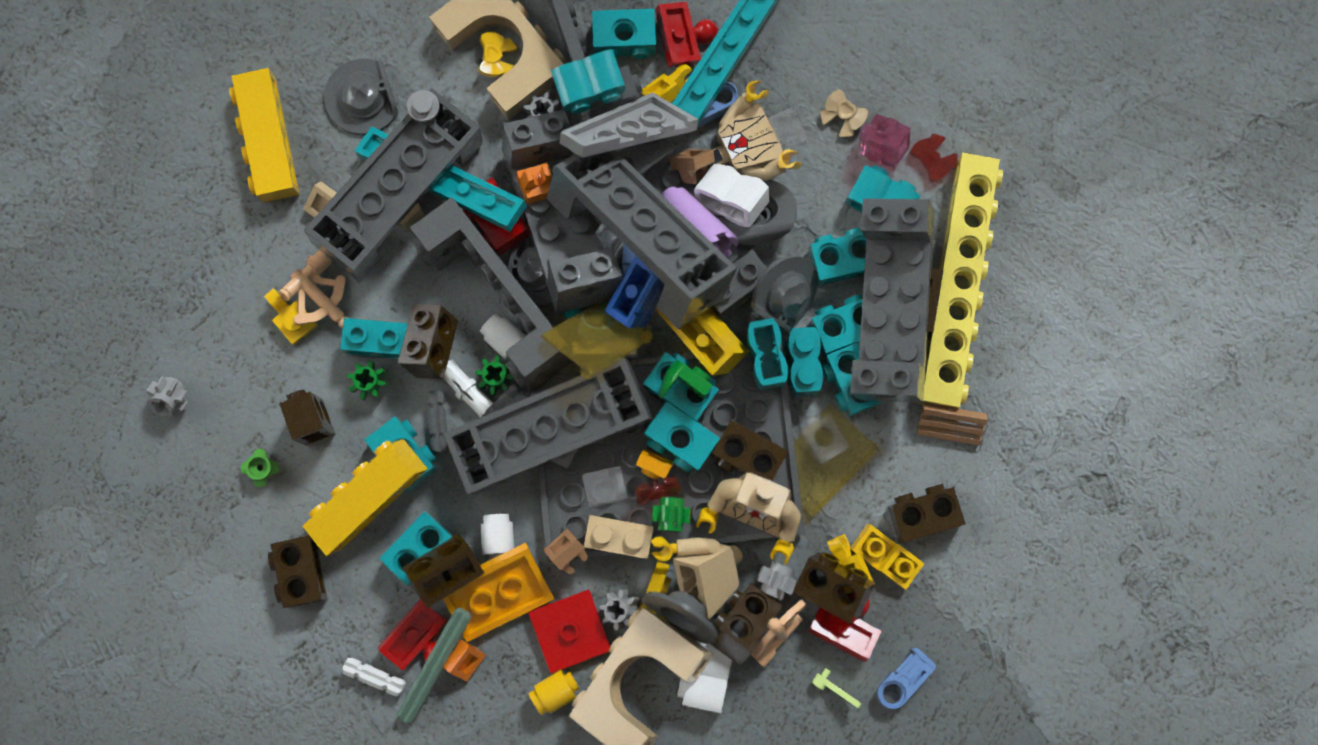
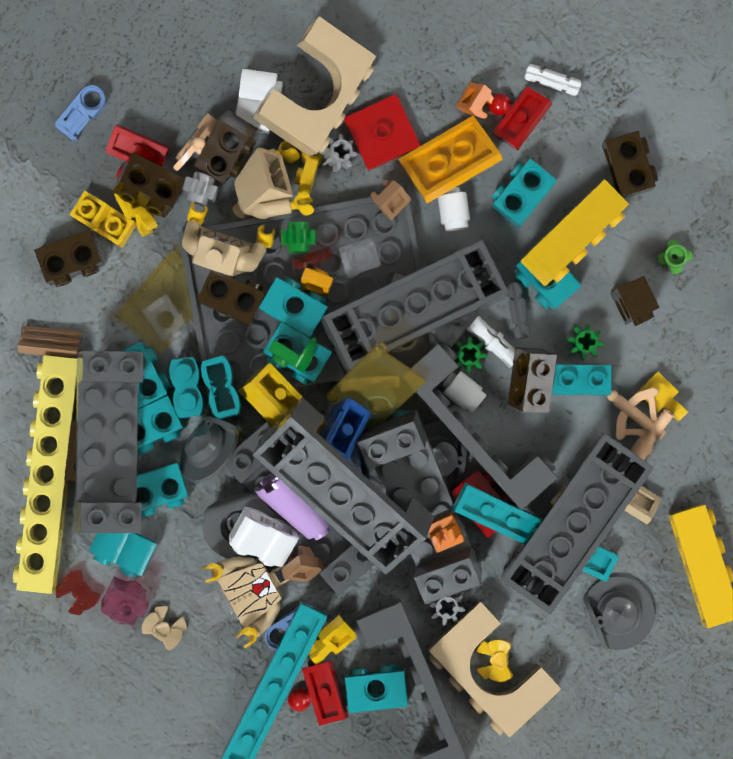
camera: 175 degrees right, 5 degrees up
(423, 106) = (555, 593): light grey plate -> none
(434, 665) = (499, 91): sand green axle -> none
(443, 570) = (497, 171): dark brown brick -> none
(554, 692) = (391, 77): yellow brick -> none
(589, 81) = (403, 626): teal brick -> none
(618, 537) = (344, 216): tan plate -> none
(628, 125) = (360, 589): light grey wing -> none
(684, 613) = (279, 150): dark grey hat -> none
(821, 682) = (155, 105): yellowish green piece -> none

